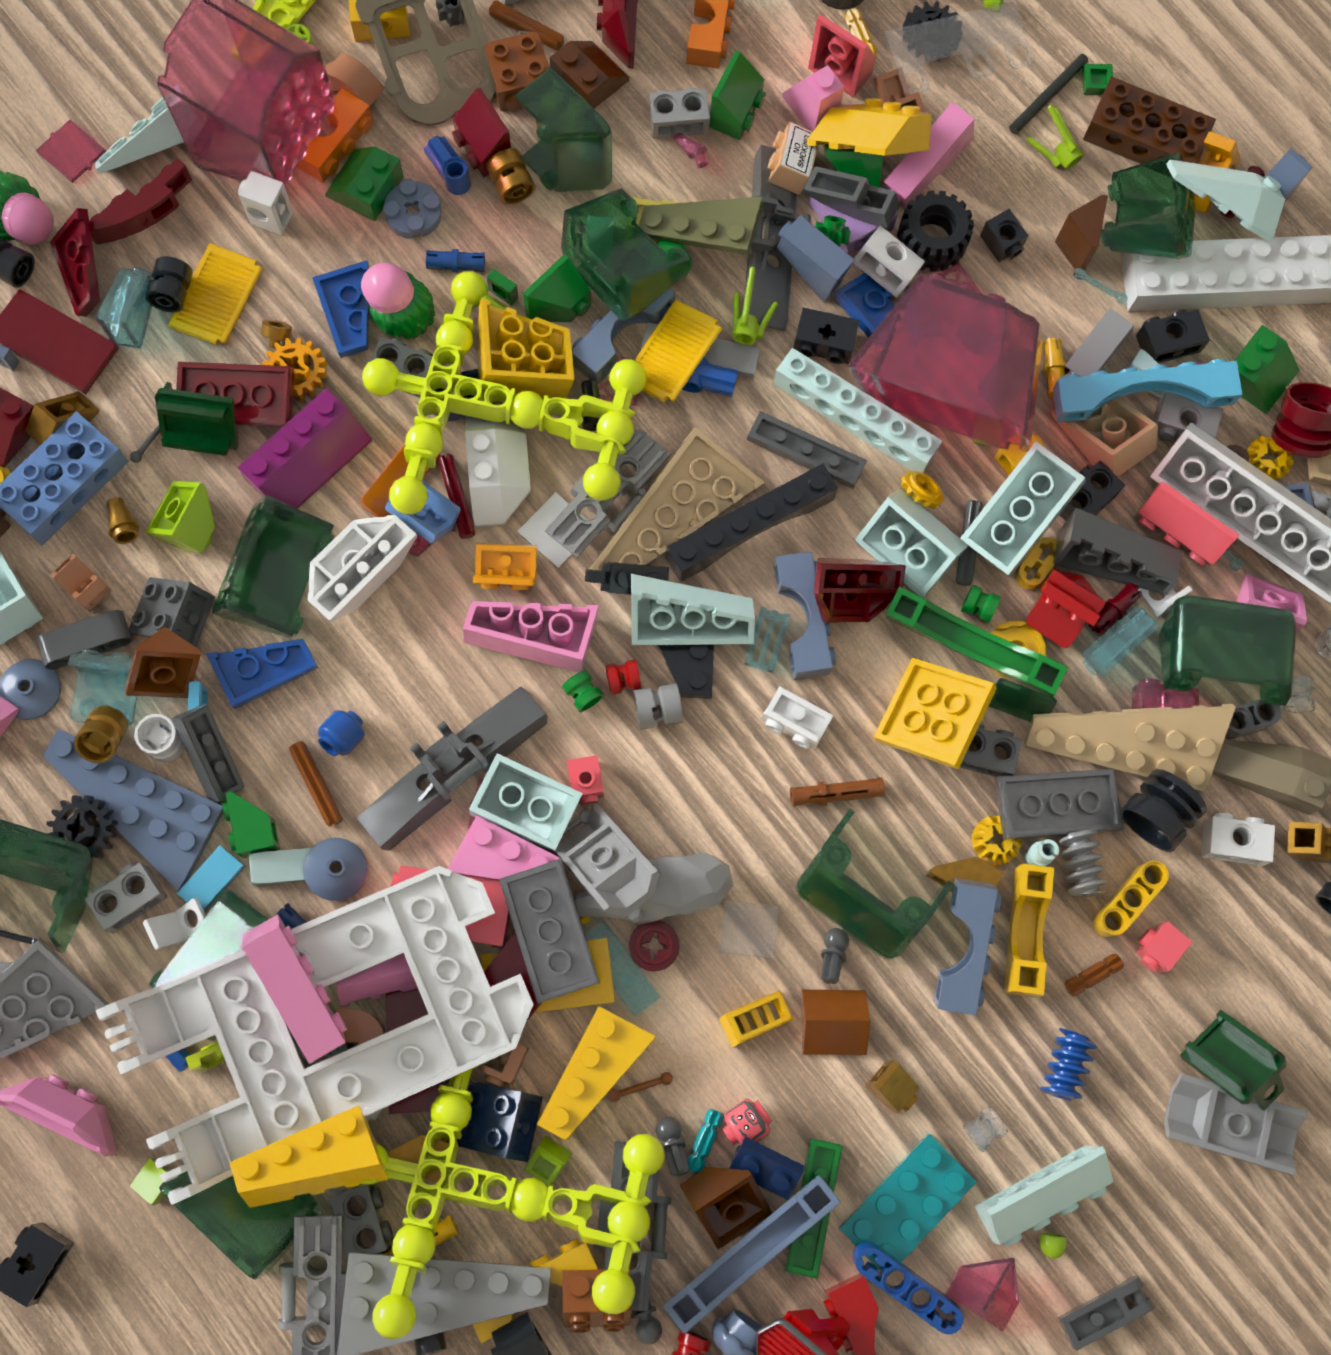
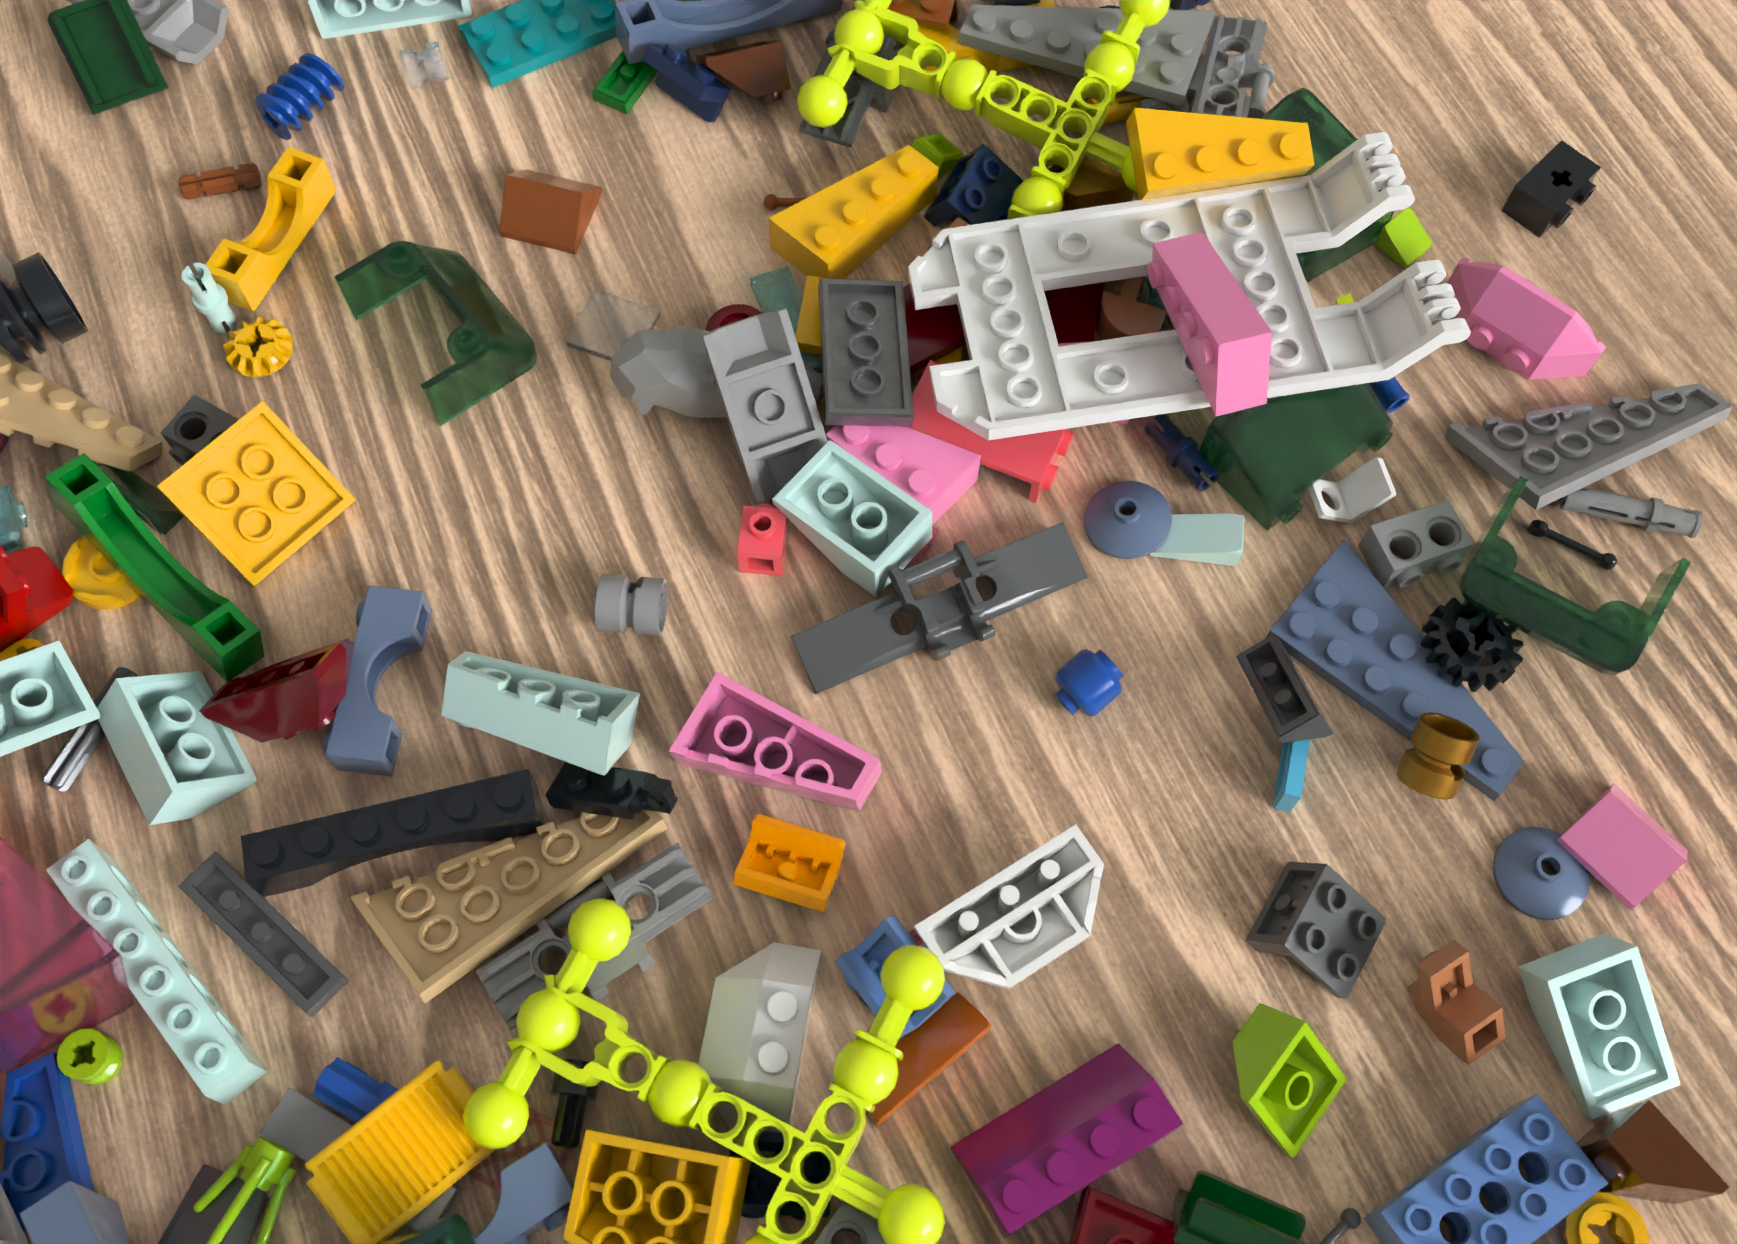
camera: 160 degrees left, 10 degrees down
(97, 633) = (1455, 914): dark grey beam -> none
(101, 682) = (1428, 836): clear light blue bracket -> none
(121, 523) = (1385, 1101): pearl gold cone -> none
(158, 738) = (1358, 731): white wheel -> none
(163, 666) = (1335, 828): dark orange slope -> none
(211, 877) = (1296, 547): medium azure tile -> none
(251, 827) = (1233, 592): green slope -> none
(259, 670) = (1192, 806): blue wing -> none
(271, 567) = (1156, 949): clear green windscreen -> none
(315, 783) = (1136, 632): dark orange axle -> none
(456, 495) = (835, 1000): dark red axle -> none
(535, 529) = (706, 929): white sticker -> none
(582, 691) = (729, 652): green wheel -> none
(630, 675) = (666, 660): red wheel -> none
(669, 1131) = (786, 152): dark grey axle -> none
(691, 668) = (568, 646): black wing -> none
(705, 1140) = (747, 132): teal axle -> none
(731, 1028) = (658, 241): yellow slope -> none
(747, 1120) = (692, 128): coral head -> none
(773, 615) = (432, 658): clear light blue tile -> none
(796, 718) = (449, 545): white bracket -> none
(834, 792) = (450, 449): dark orange pin -> none
(836, 942) = (512, 287): dark grey axle -> none
(838, 329) = (114, 1117): black brick -> none
(893, 1087) = (512, 123): pearl gold slope -> none
(922, 489) = (117, 816): yellow gear -> none
(960, 985) = (377, 197): sand blue arch -> none
(970, 869) = (315, 307): pearl gold slope -> none
(980, 604) = (119, 629): green wheel -> none
(1058, 803) = (157, 361): flat silver tile -> none
(1082, 864) = (161, 288): light grey piece -> none
(1144, 894) = (129, 238): yellow beam -> none
(1162, 947) = (122, 181): coral brick -> none

